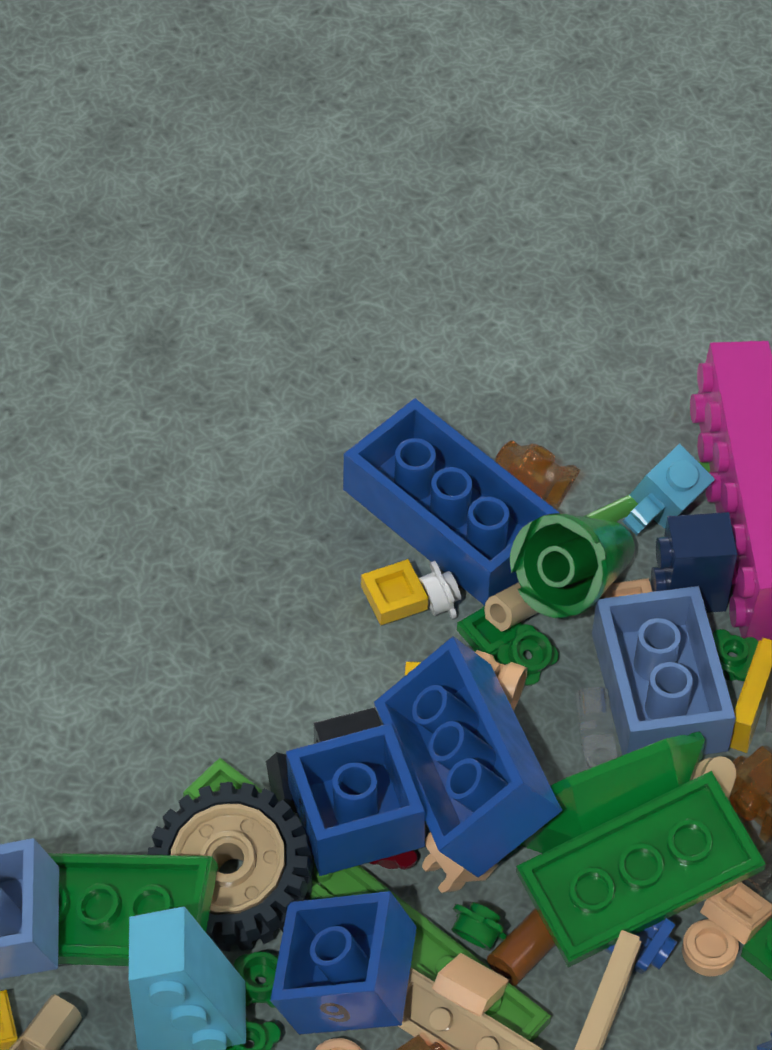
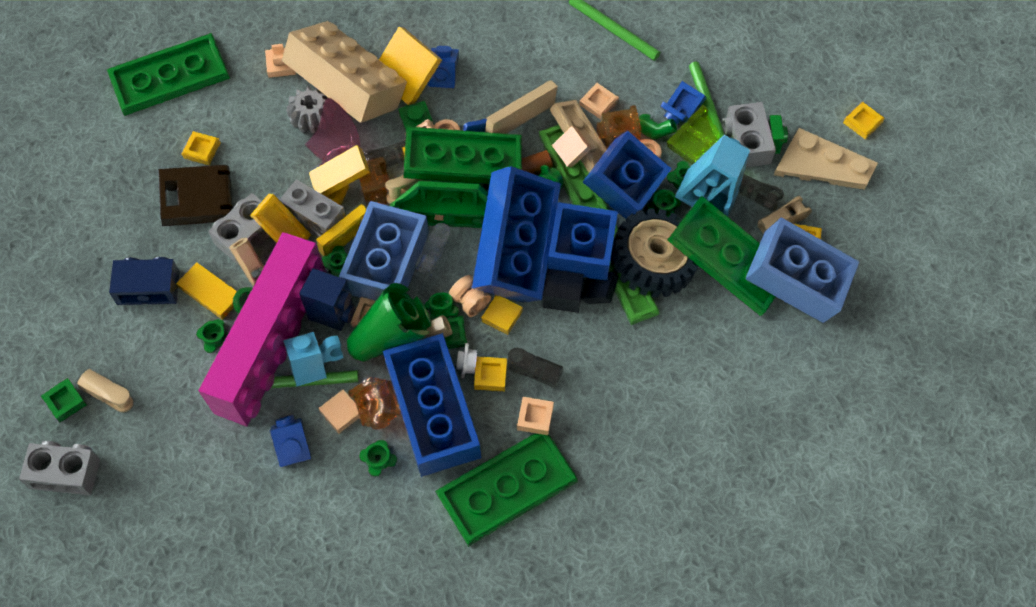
camera: 150 degrees left, 10 degrees up
(283, 472) = (506, 487): none -> green tile
(292, 550) = (535, 416): none -> light nougat tile
(335, 629) = (535, 367): none -> clear smoke bar
(488, 418) = (381, 449): none -> green plate
(587, 457) = (340, 411): none -> light nougat tile
(622, 395) = (290, 441): none -> blue bracket

